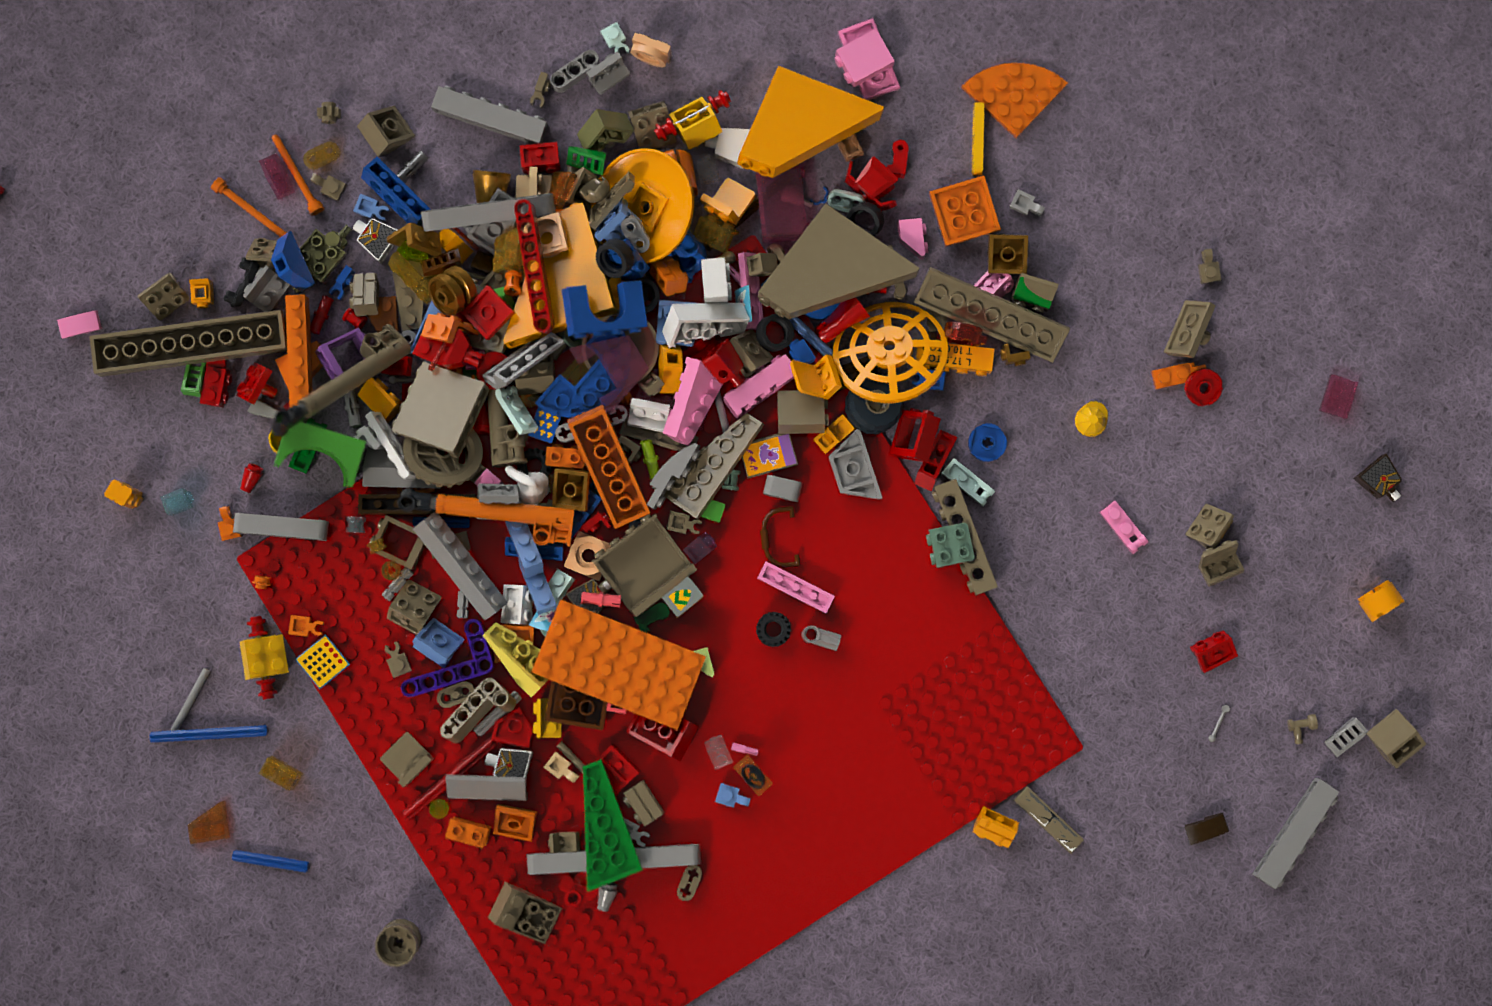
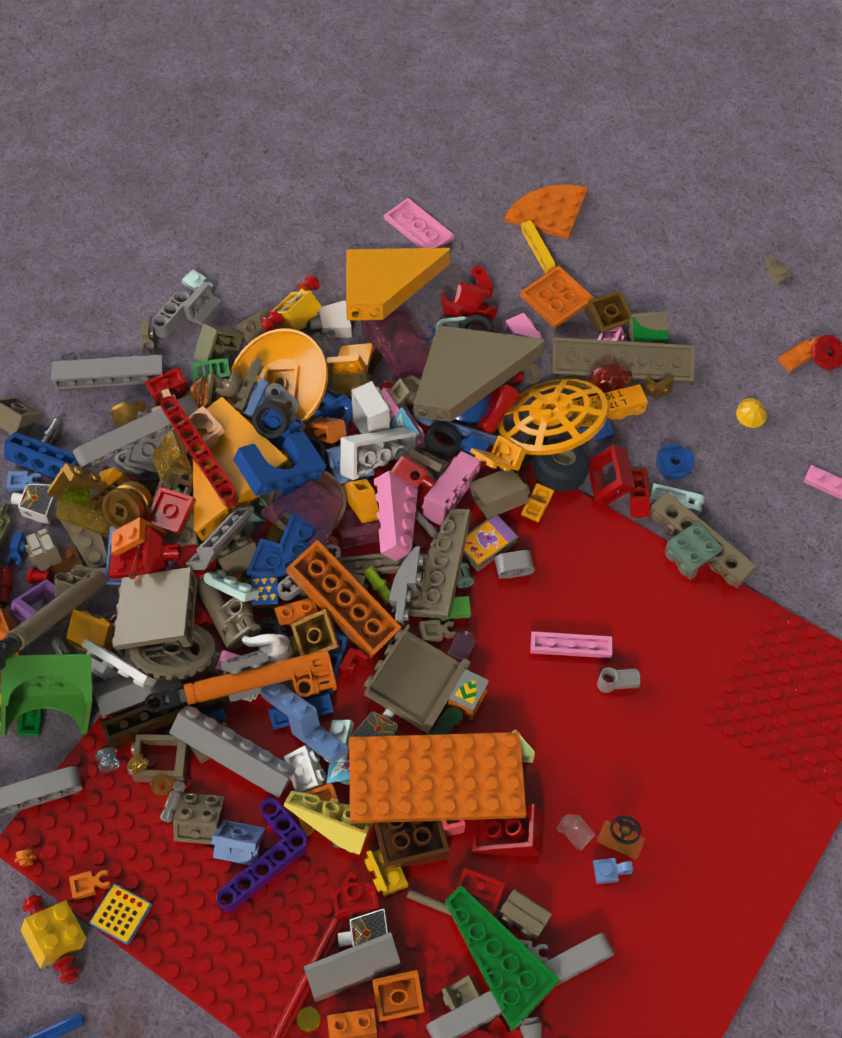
camera: 20 degrees left, 25 degrees down
(399, 662) = (204, 881): dark tan plate -> none
(400, 368) = (98, 602): red bracket -> none
(407, 759) = (251, 978): dark tan bracket -> none
(455, 733) = (312, 869): dark tan beam -> none
(456, 694) = (278, 887): dark tan plate -> none
(463, 603) = (248, 792): light grey axle -> none
(490, 719) = (331, 886): light grey axle -> none
(512, 283) = (187, 480): orange bush -> none
(560, 766) = (419, 915): tan plate -> none
(574, 560) = (346, 705): light nougat piece -> none
(601, 599) = (389, 724): coral pin -> none
(648, 415) = (359, 543): white bracket -> none
(650, 50) = (235, 266): light nougat piece -> none
(651, 384) = (351, 517): dark tan plate -> none
(685, 879) = (607, 980): dark tan beam -> none
(744, 749) = (596, 818): bright pink pin -> none
(765, 539) = (520, 616): reddish brown piece -> none
(773, 617) = (569, 679): black tyre -> none
(850, 148) = (436, 288): medium nougat plate -> none
(854, 469) = (571, 524): light grey wing -> none
(864, 58) = (415, 221): bright pink brick -> none
(1024, 203) = (602, 278): light grey plate -> none
(1190, 329) = (791, 312): dark tan plate -> none

